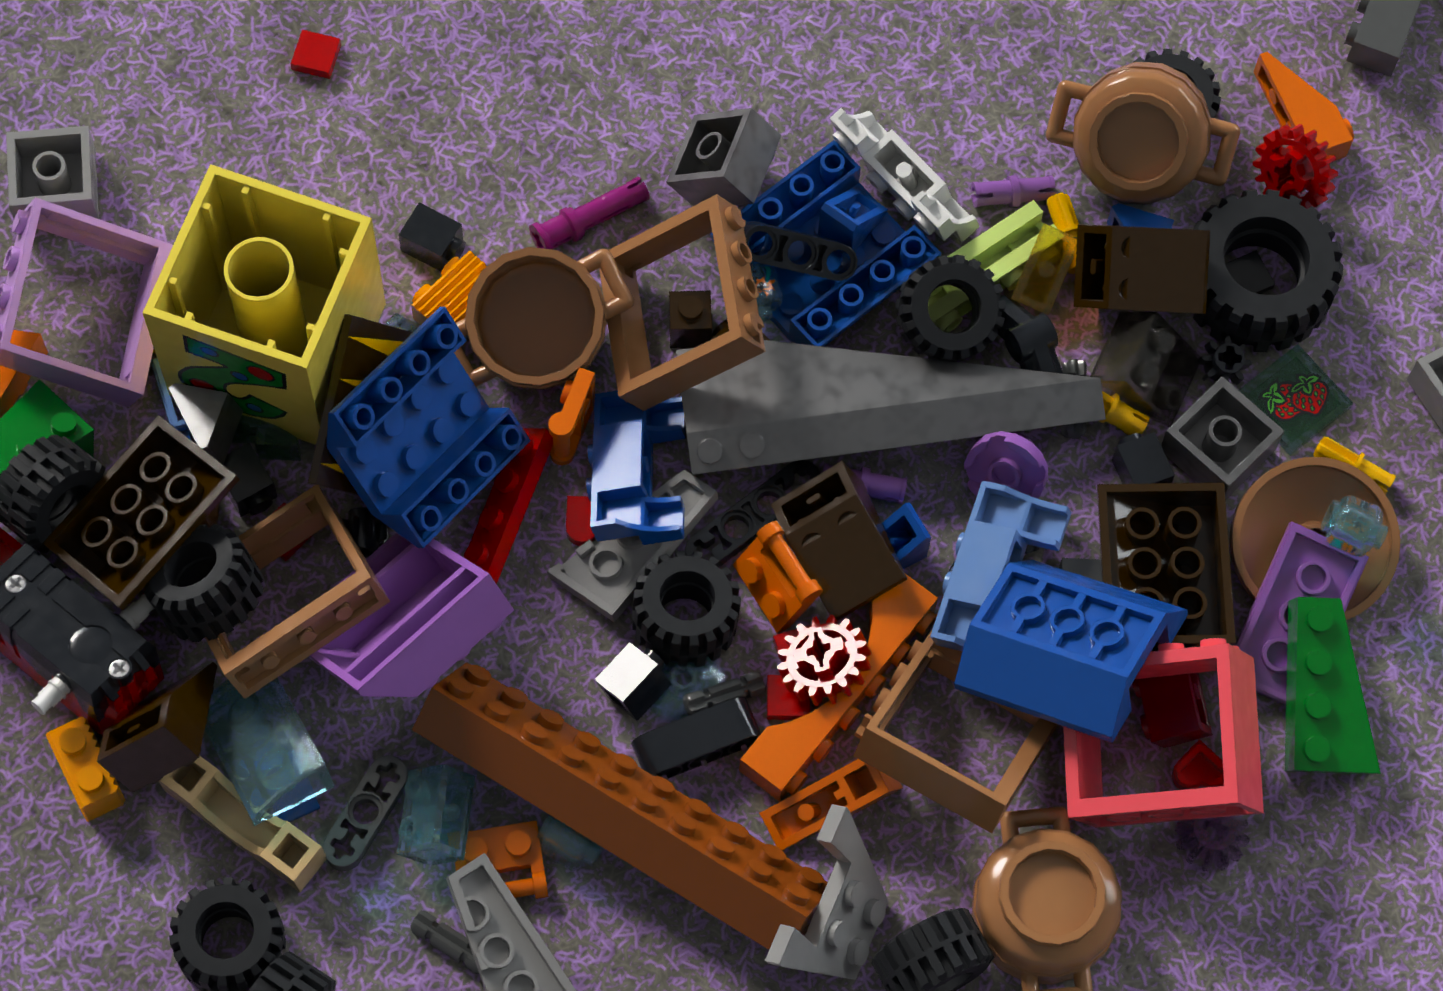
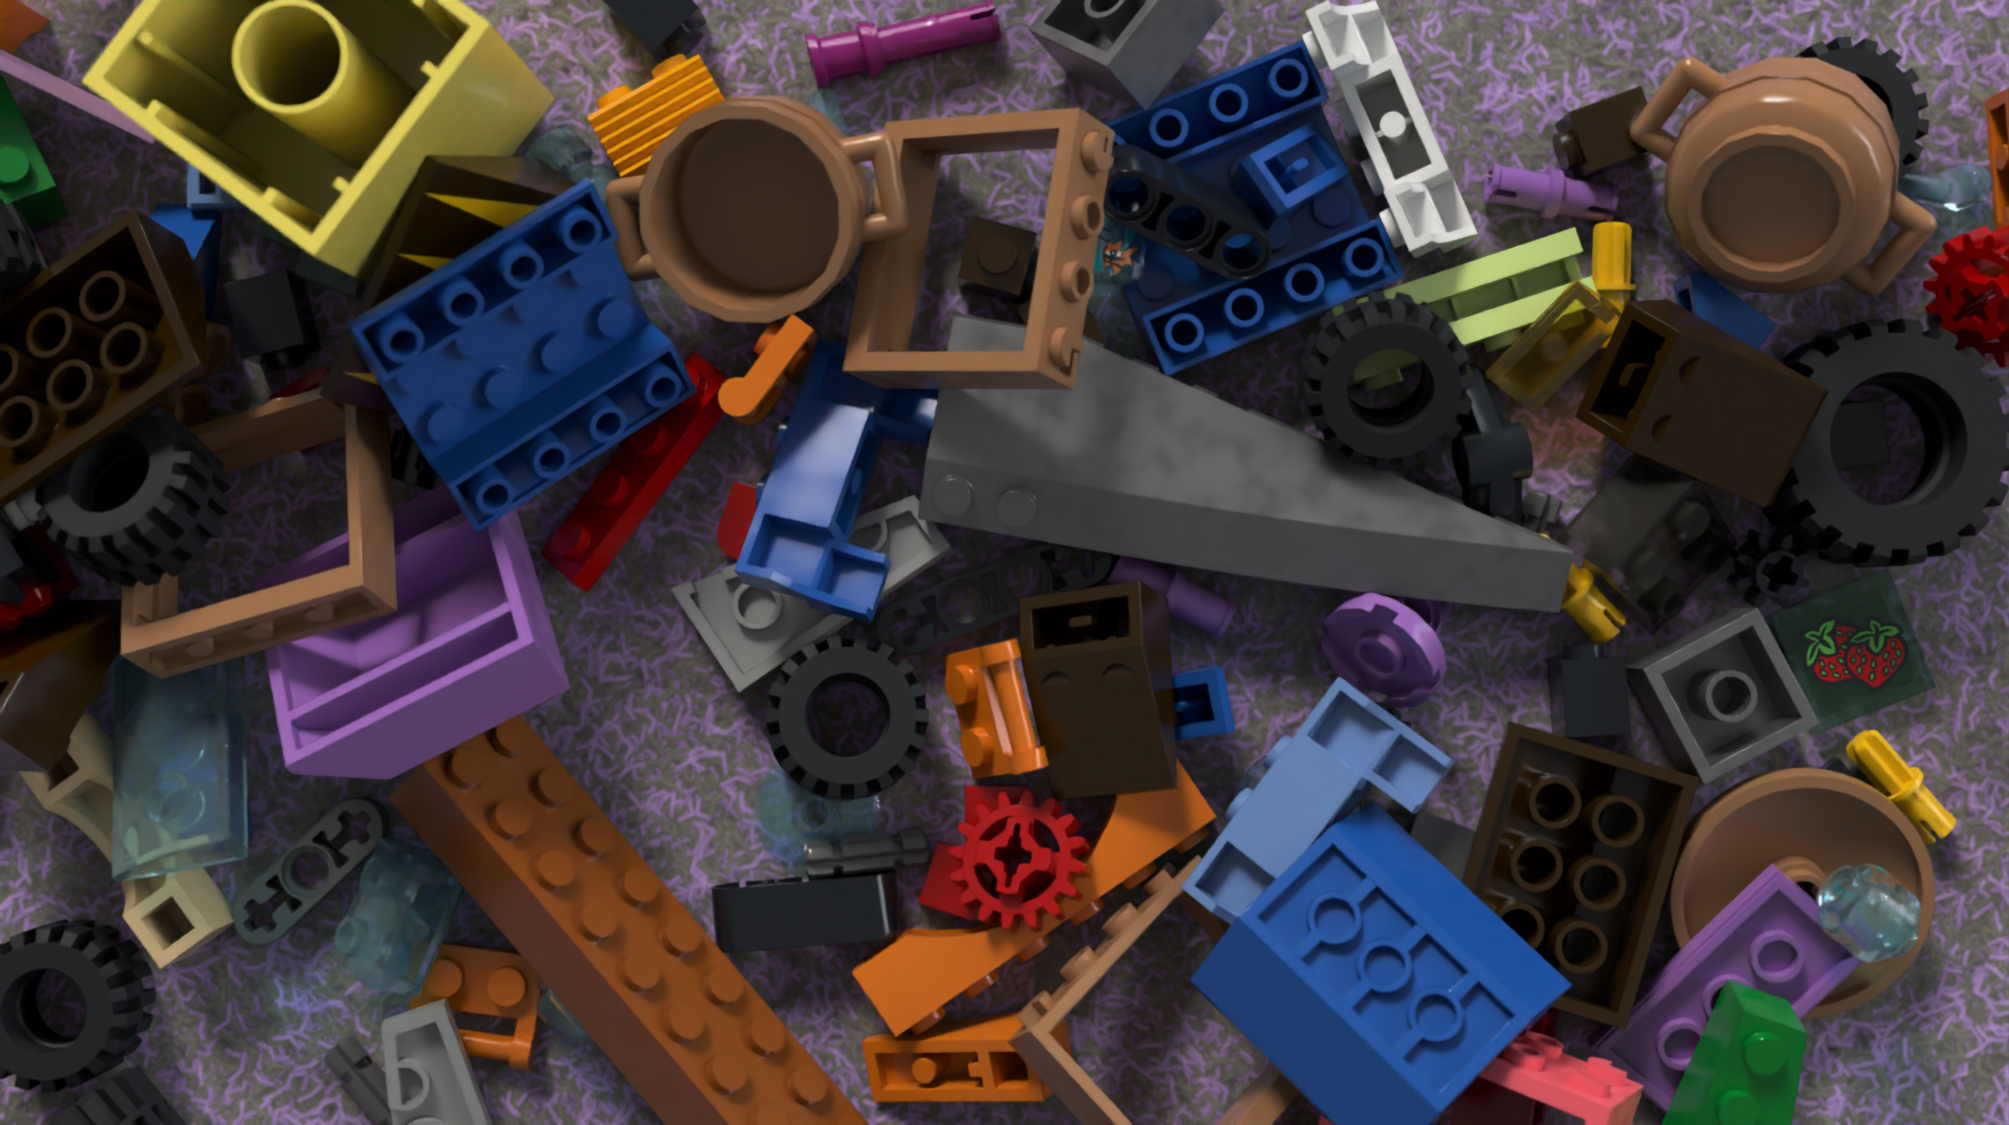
camera: 15 degrees right, 20 degrees up
(209, 416) = (219, 232): flat silver slope -> none
(634, 680) = (740, 801): brick -> none
(1029, 151) = (1598, 135): none -> dark brown brick
(1254, 120) = (1950, 189): none -> clear light blue arm

